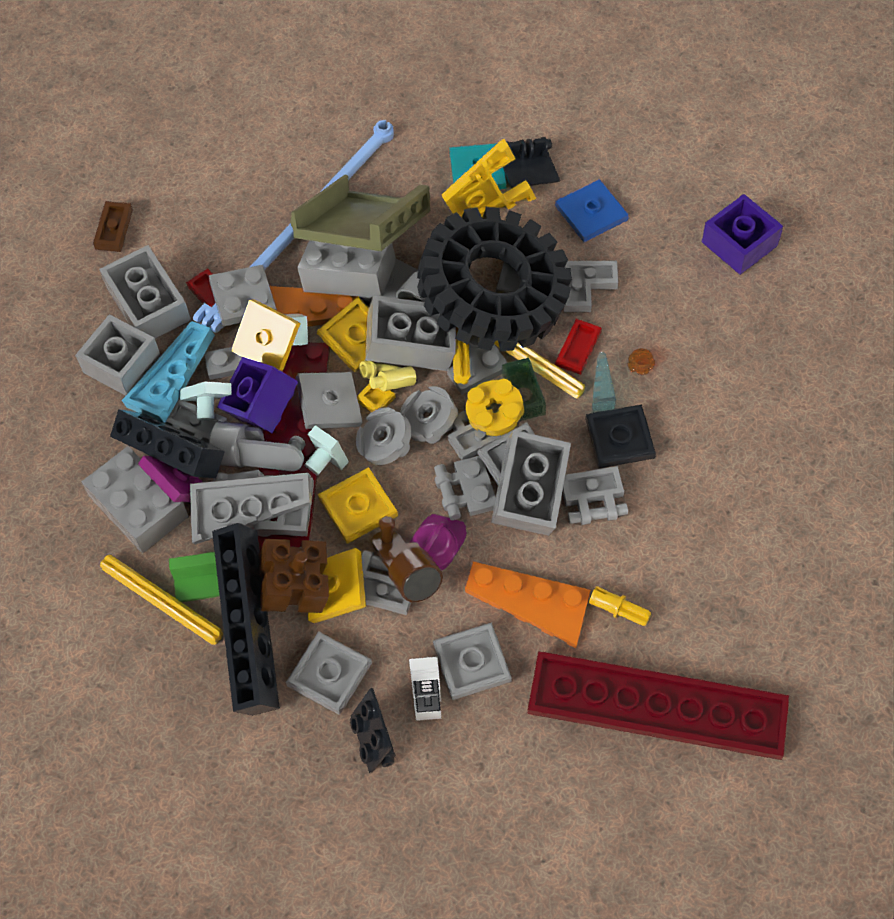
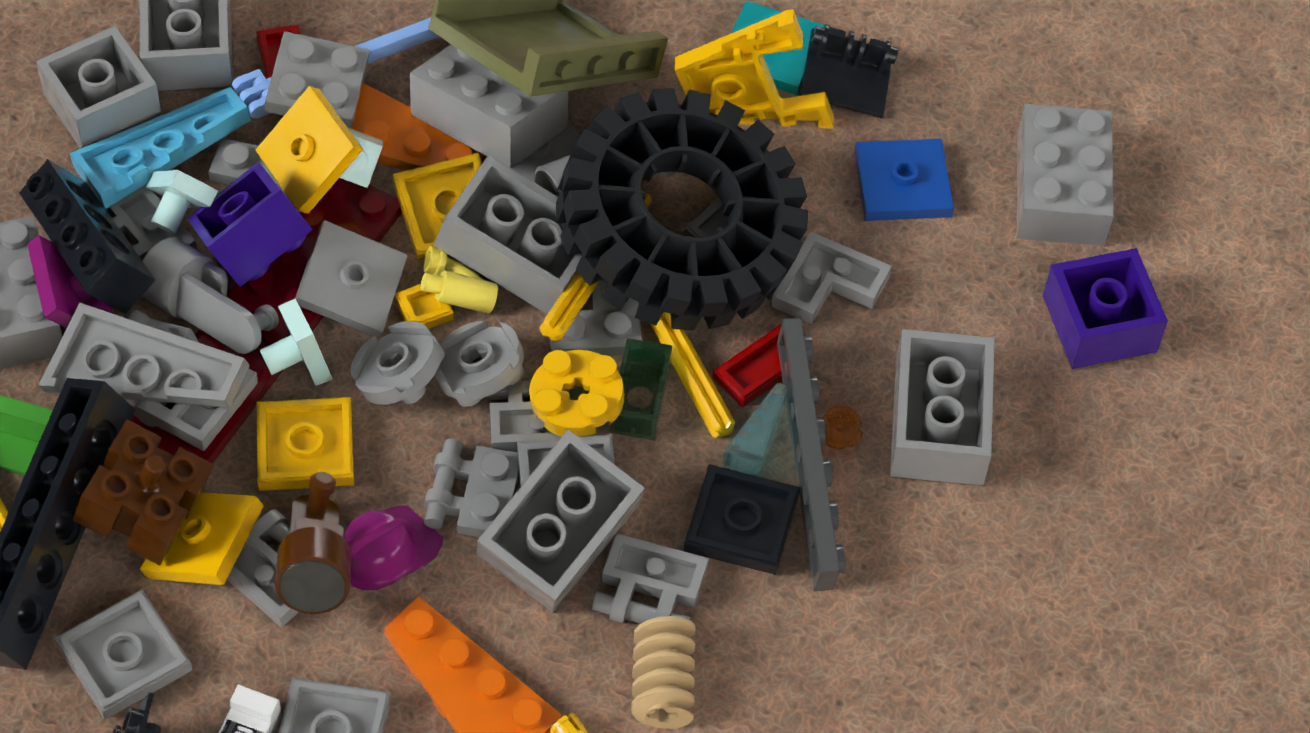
camera: 20 degrees right, 5 degrees down
(629, 542) = (663, 672): none -> tan piece
(642, 391) = (812, 471): none -> dark grey plate
(677, 170) = (1064, 175): none -> light grey brick
(691, 326) = (942, 407): none -> light grey brick

